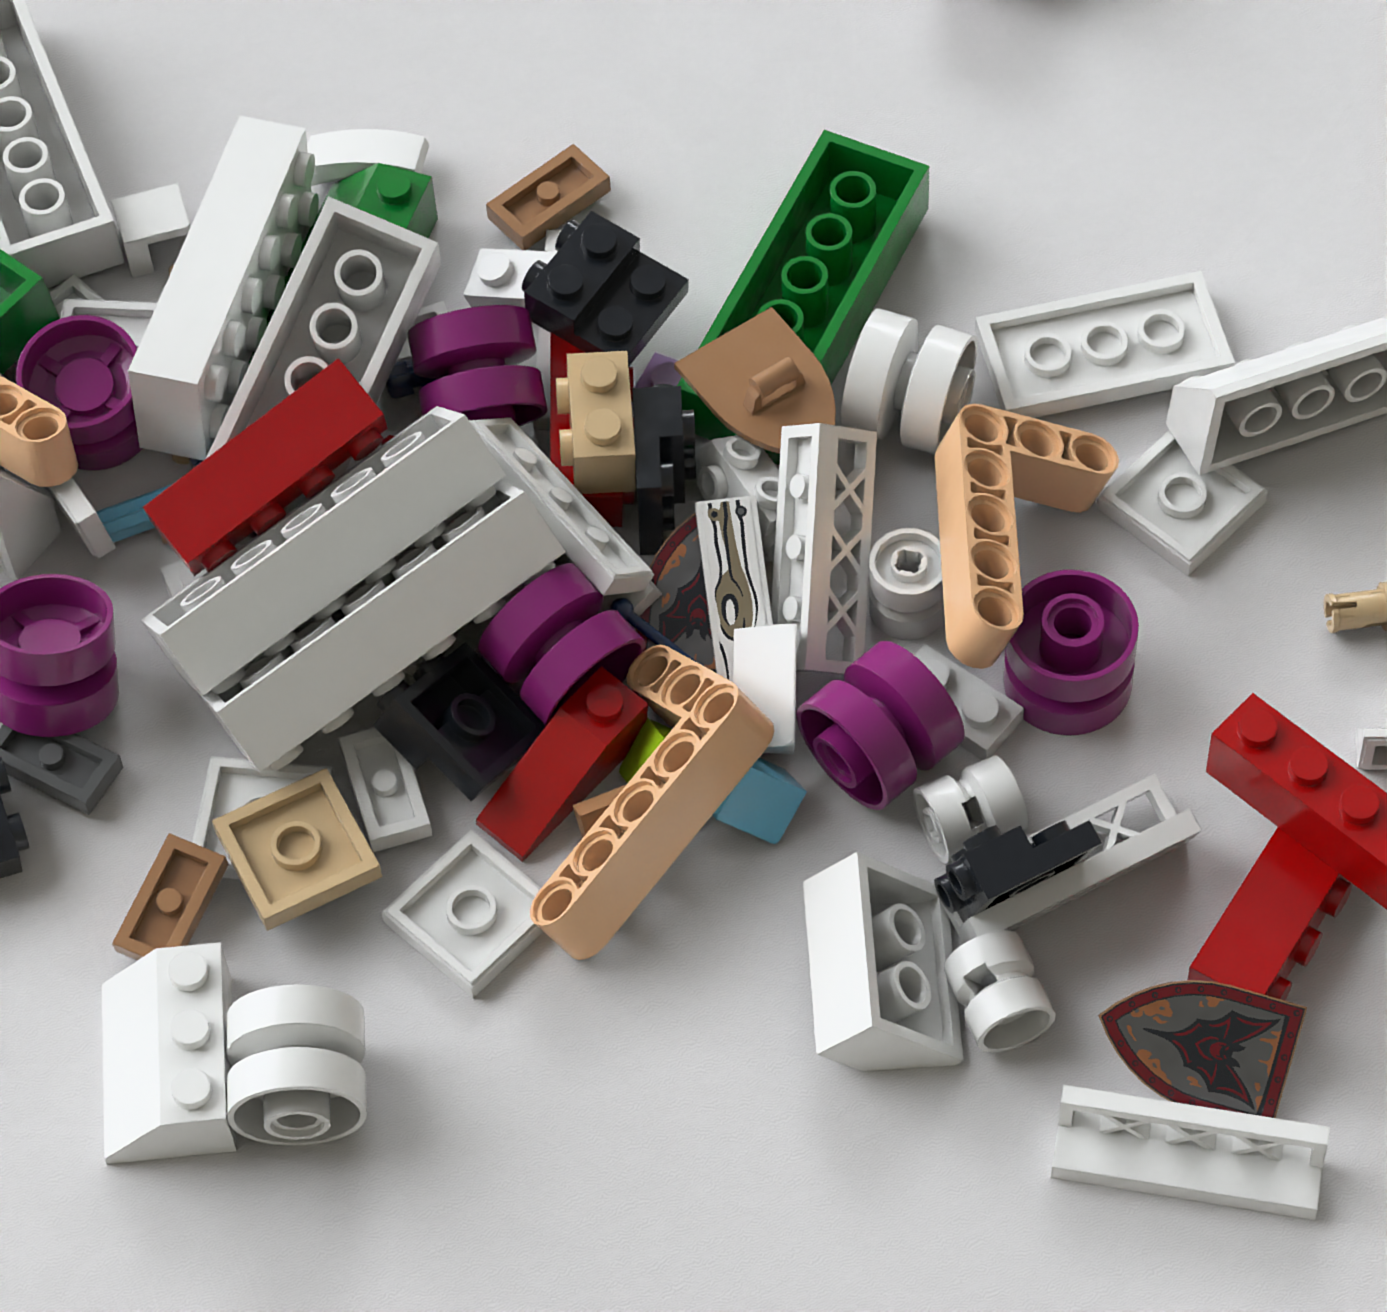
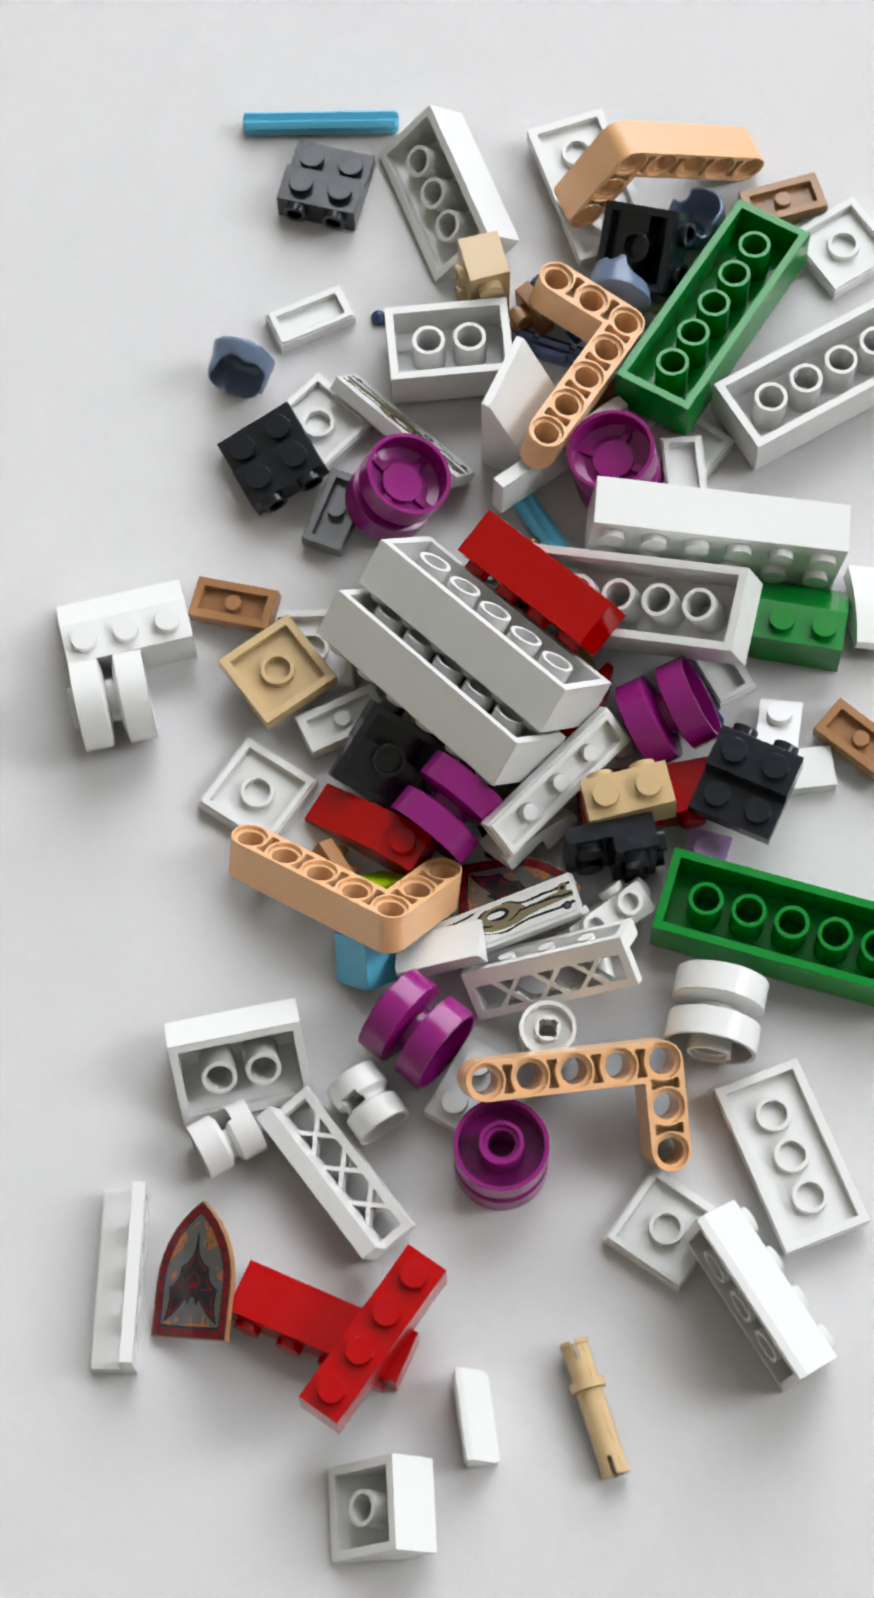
camera: 80 degrees right, 10 degrees up
(147, 220) = (778, 475): white panel -> none
(626, 609) = (487, 845): dark blue hinge -> none
(760, 380) = (685, 908): medium nougat shield -> none
(1005, 864) = (298, 1121): black plate -> none

